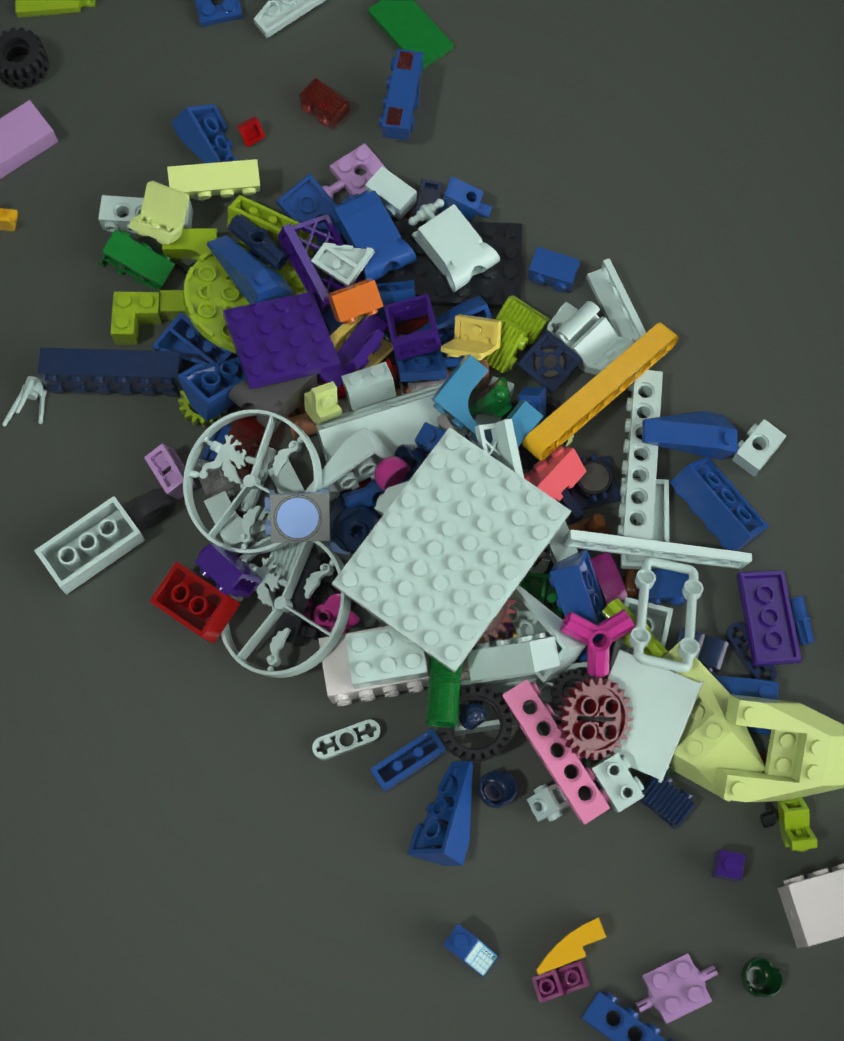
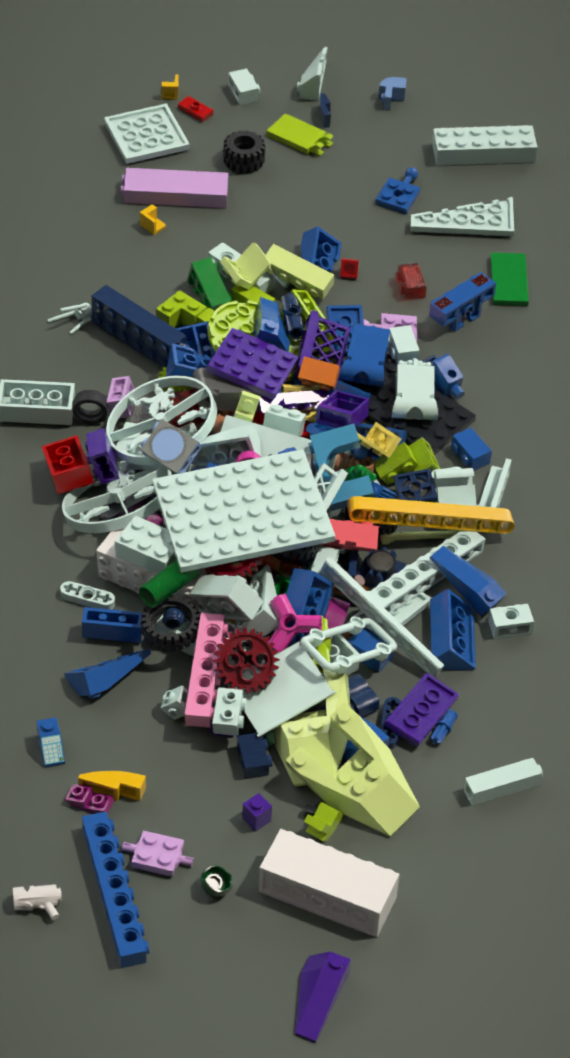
camera: 35 degrees right, 25 degrees down
(342, 261) = (332, 351): light aqua wing -> none
(497, 789) = (152, 677): dark blue hair -> none

